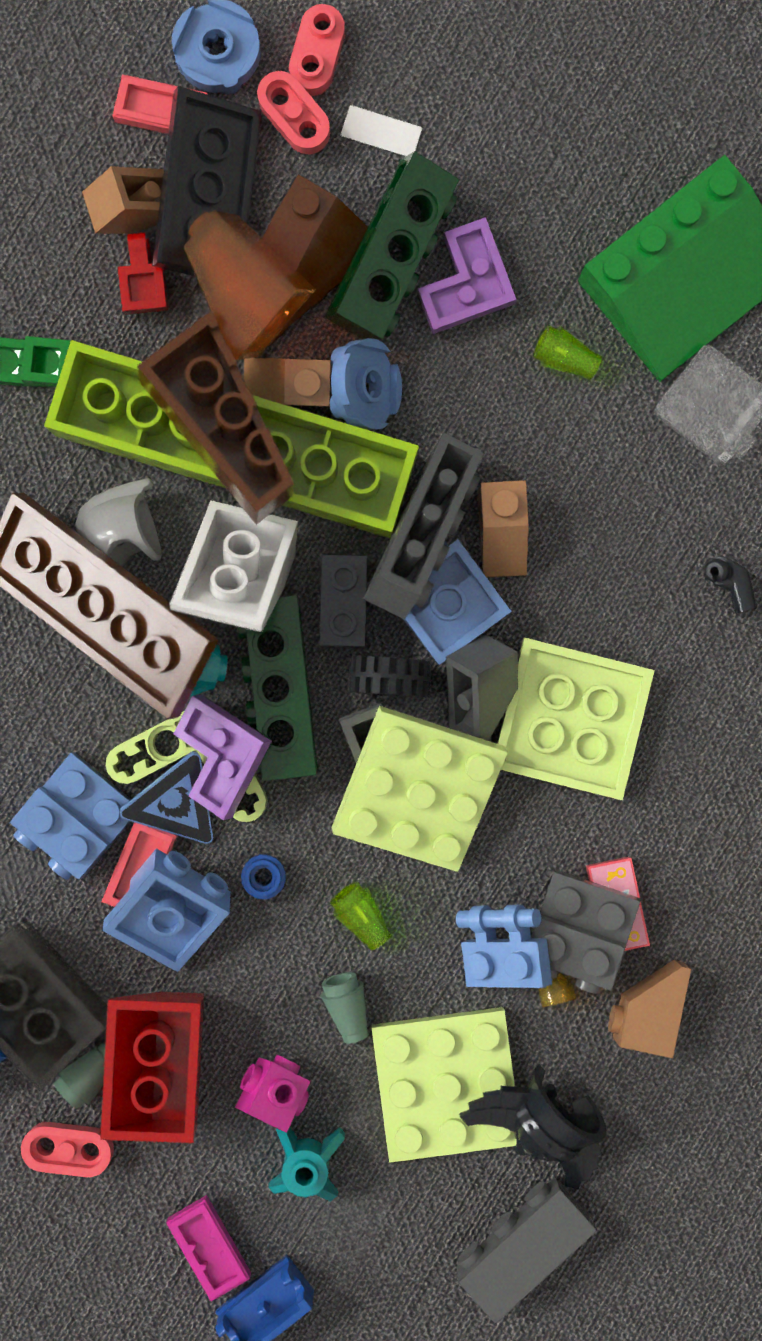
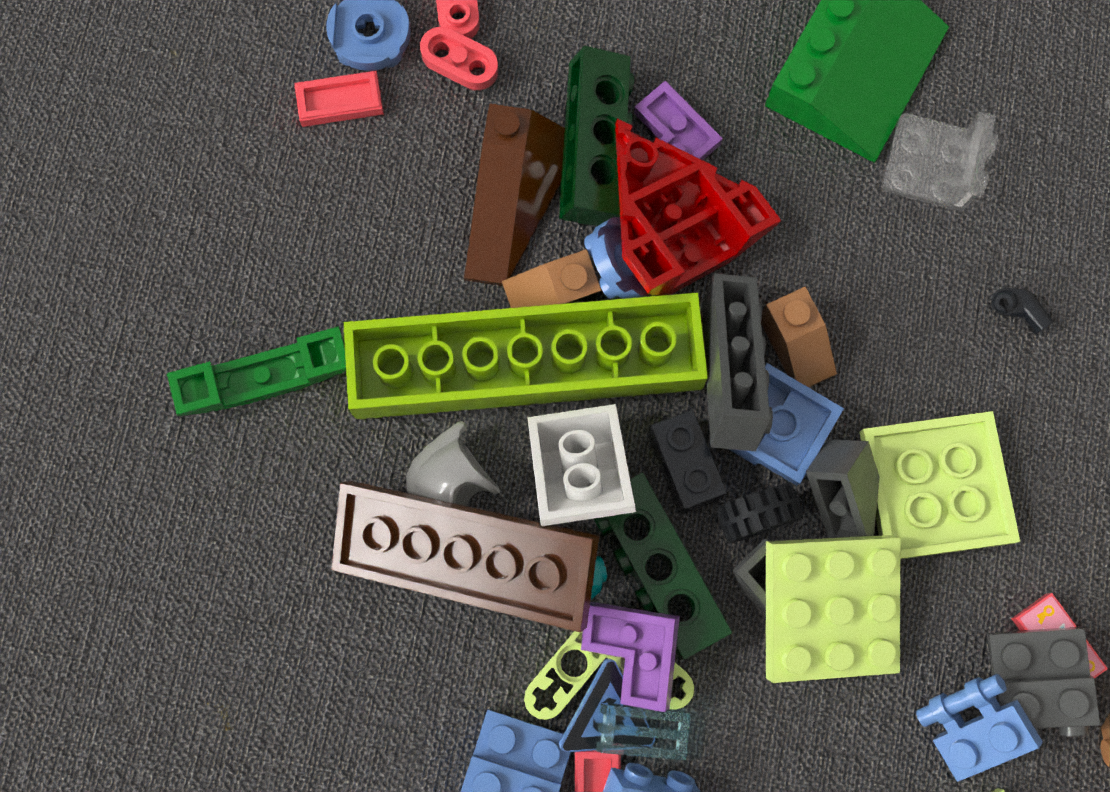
camera: 25 degrees left, 10 degrees down
(124, 200) = (349, 182): medium nougat slope -> none
(142, 284) = (383, 251): red plate -> none
(169, 813) = (609, 728): none -> clear light blue tile
(205, 169) = (409, 148): black tile -> none
(211, 406) = (512, 334): reddish brown wedge -> none
(244, 282) = (483, 208): clear orange slope -> none
(259, 890) = (732, 762): blue plate -> none
(360, 914) = (827, 753): clear neon green cone -> none
(381, 131) = (539, 47): white sticker -> none
(436, 360) = (681, 214): none -> red wedge
(558, 992) = (1047, 752): clear yellow hinge -> none
(565, 353) = (783, 167): clear neon green cone -> none

